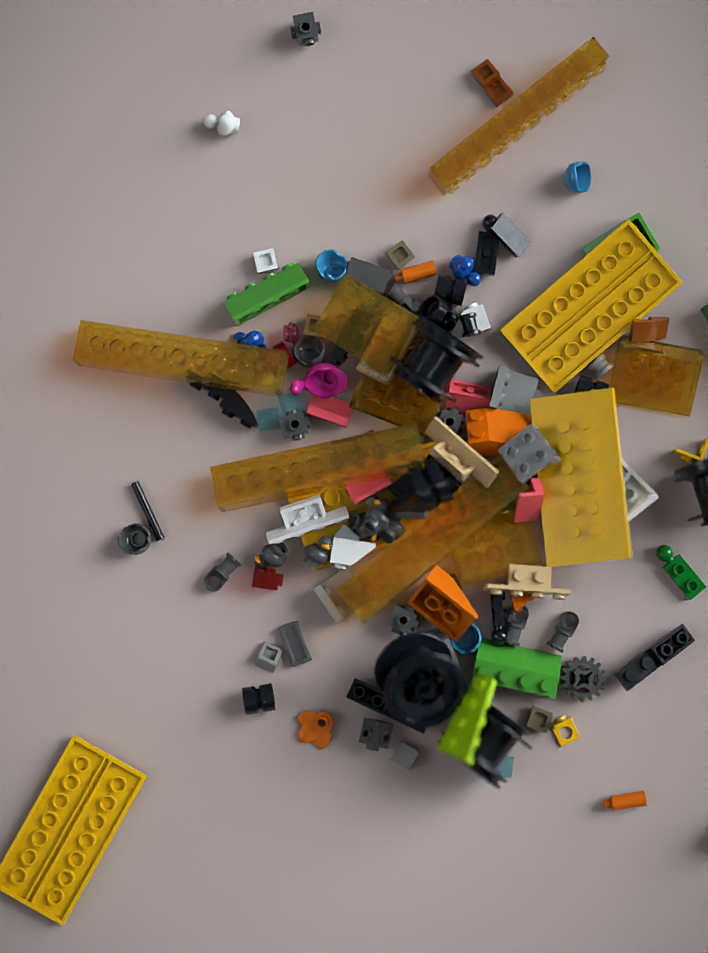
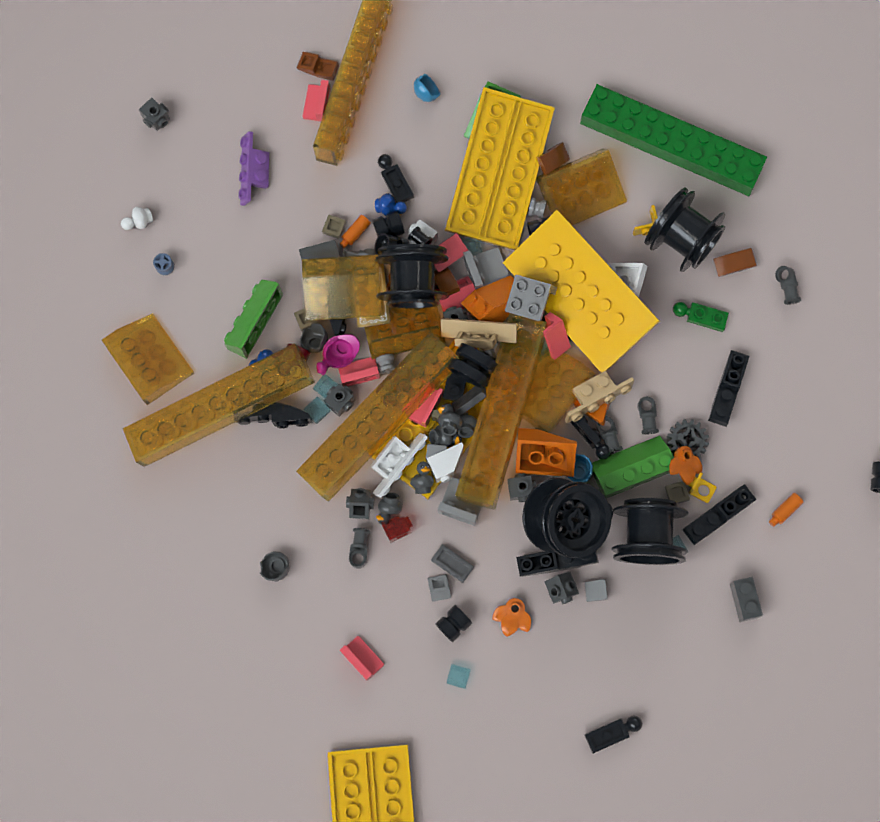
camera: 30 degrees left, 10 degrees down
(147, 265) = (148, 357): none -> clear yellow slope
(147, 510) = (269, 539): black bar -> none
(158, 672) = (362, 657): none -> coral panel
(219, 180) = (160, 261): none -> sand blue wheel
(231, 747) = (458, 676): none -> clear light blue tile
(248, 534) = (360, 503): none -> dark grey brick
(265, 260) = (236, 296): white plate -> none
(290, 333) = (290, 335): clear pink plate -> none
(331, 266) = (288, 266): dark azure hair -> none
(331, 889) = (612, 733): none -> black plate
(359, 420) = (386, 364): none -> light grey wheel
(363, 146) = (253, 168): none -> medium lavender bracket
(465, 381) = (446, 282): none -> dark orange slope
(465, 725) = (626, 526): lime wing -> none
(466, 118) = (316, 101): none -> coral panel
(492, 349) = (455, 249): none -> coral panel
(509, 235) = (404, 160): tile -> none
(513, 360) = (473, 245): none -> clear light blue tile
(531, 855) = (746, 599): none -> dark grey brick
(562, 764) = (719, 514): none -> black slope
(563, 703) = (685, 464): none -> orange plate

